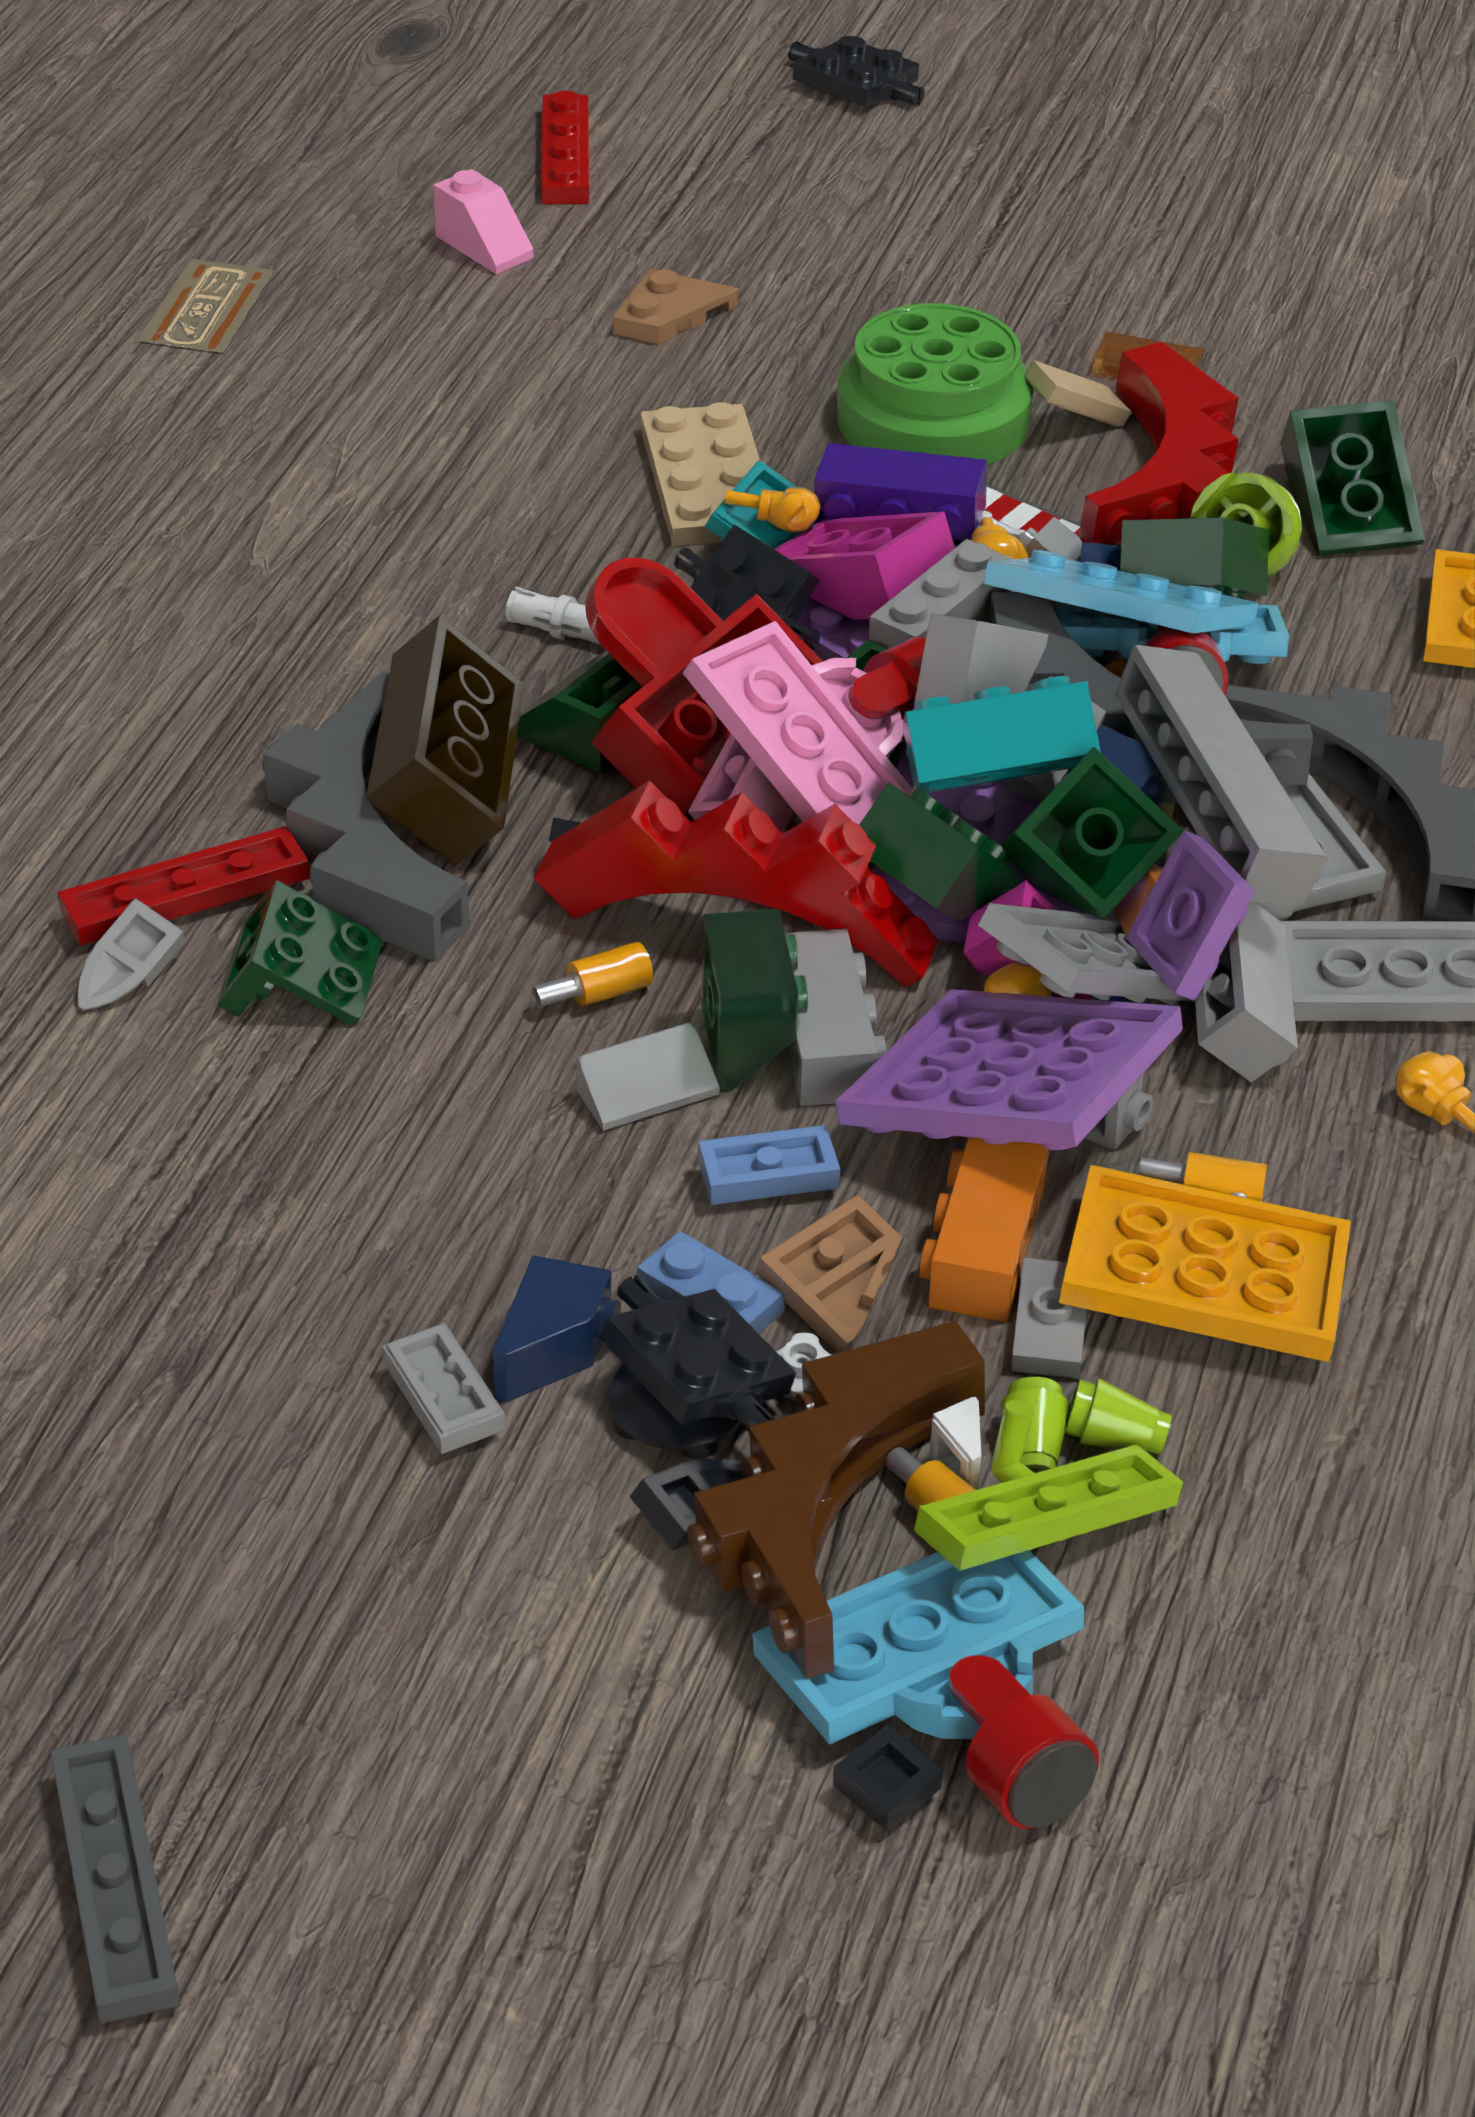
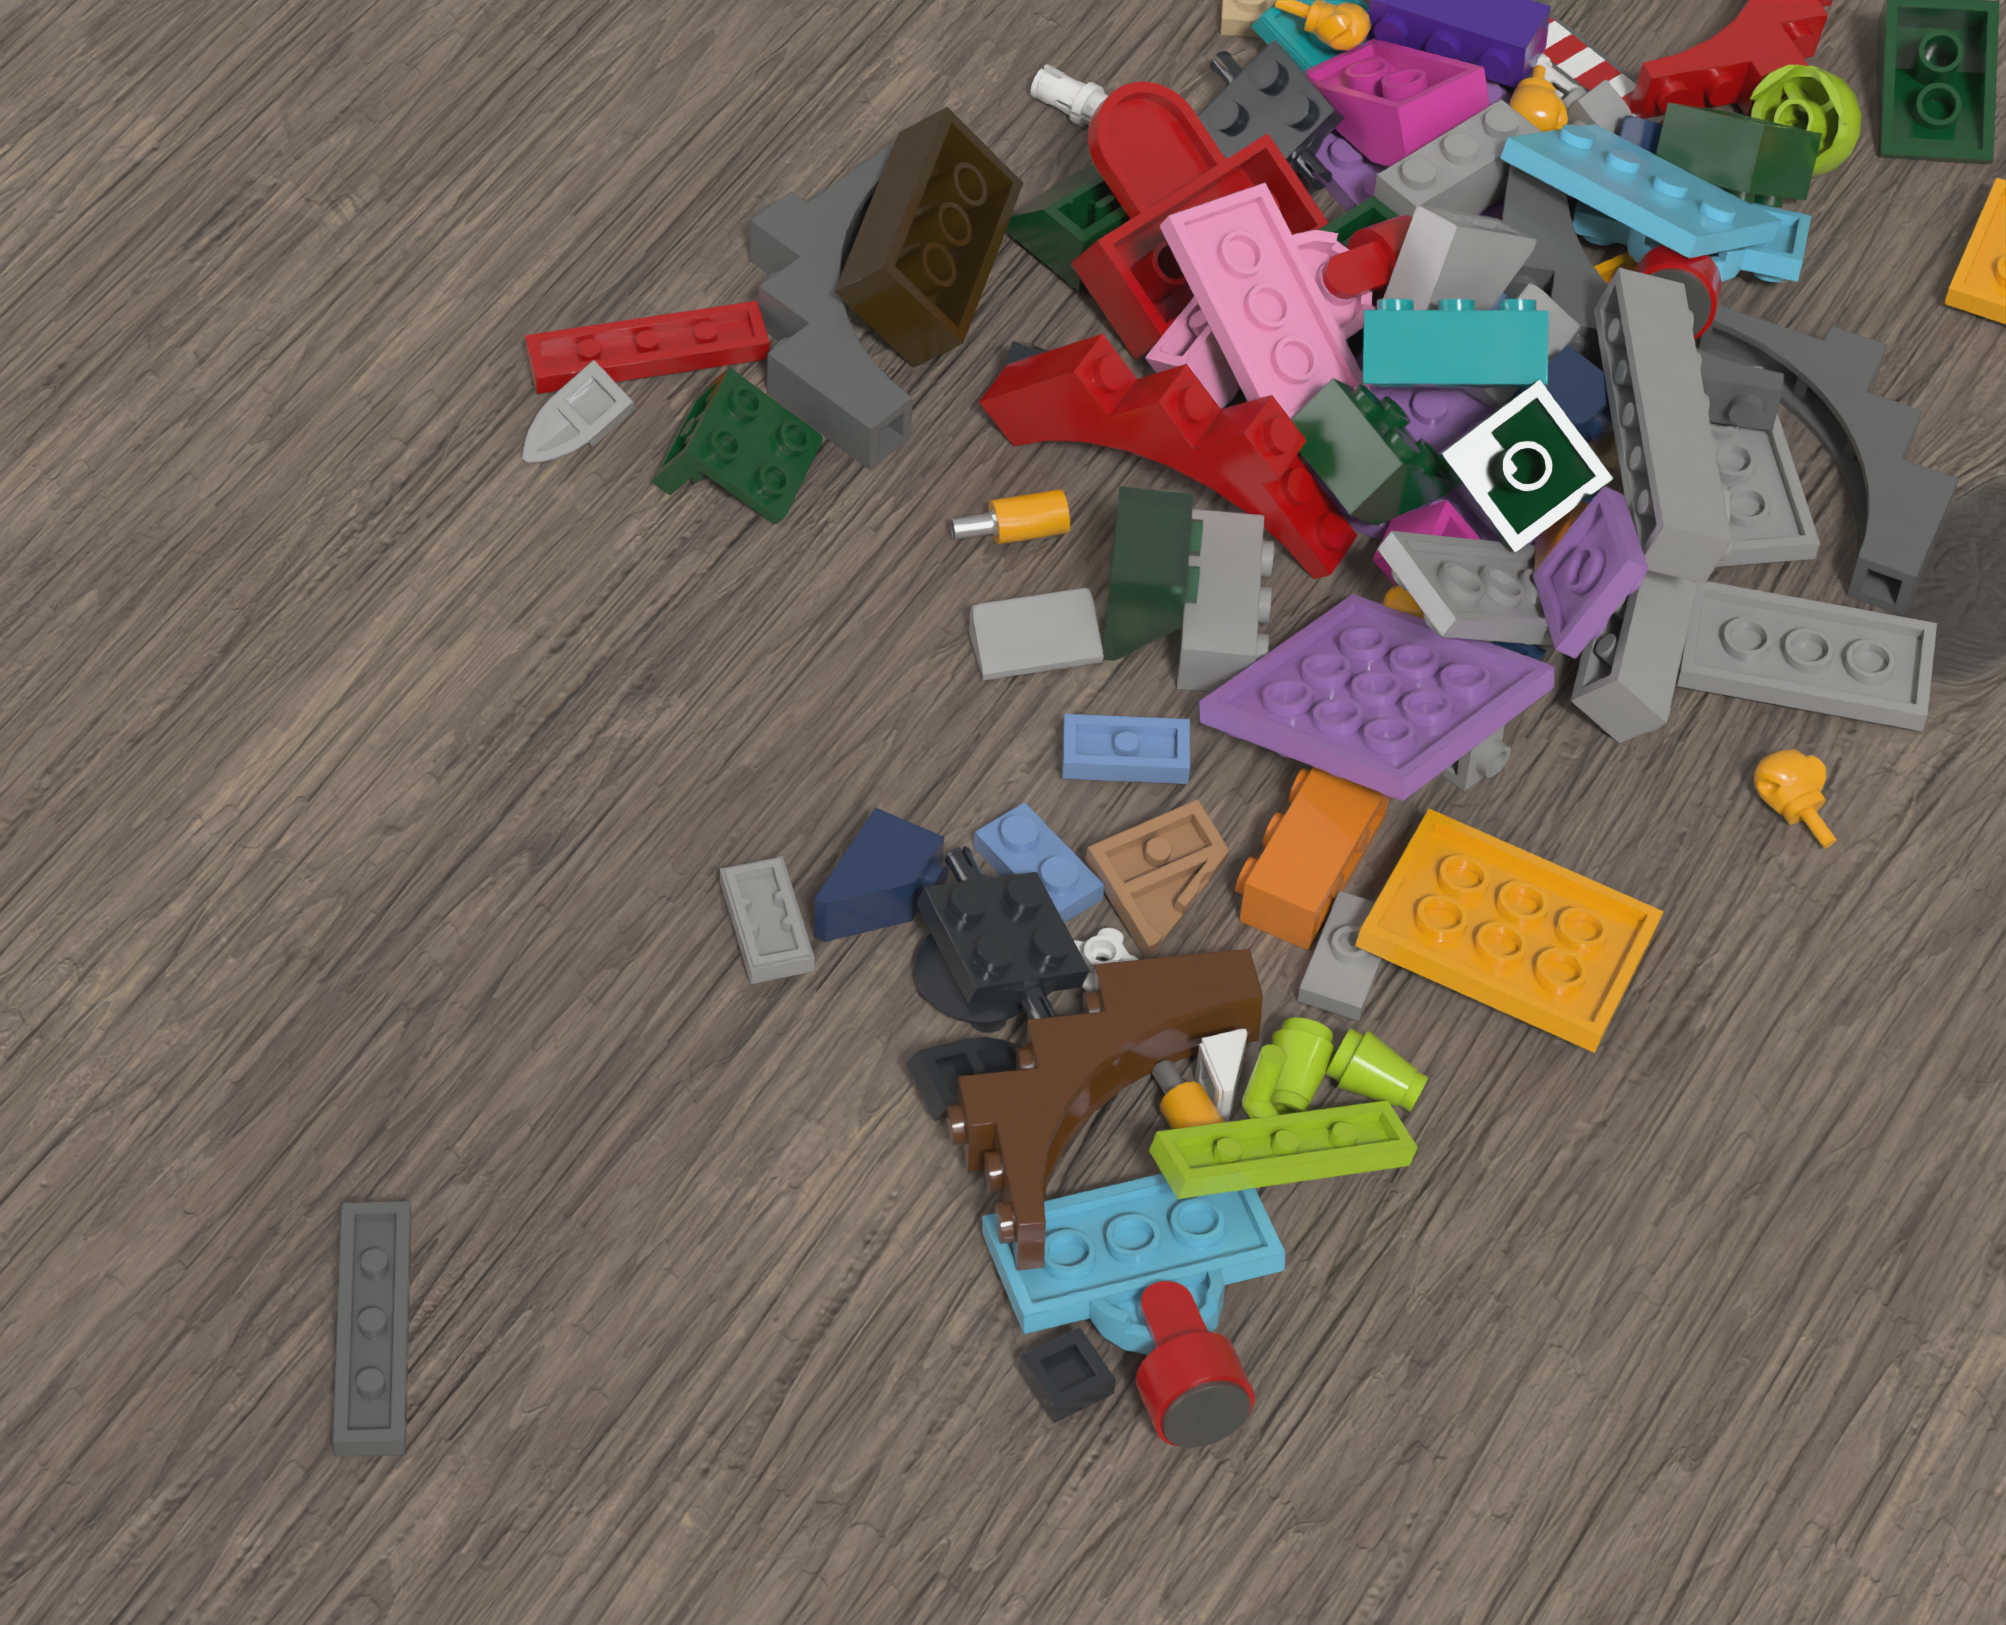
camera: 10 degrees right, 10 degrees up
(1211, 1173) = (1544, 839): light orange piece -> none

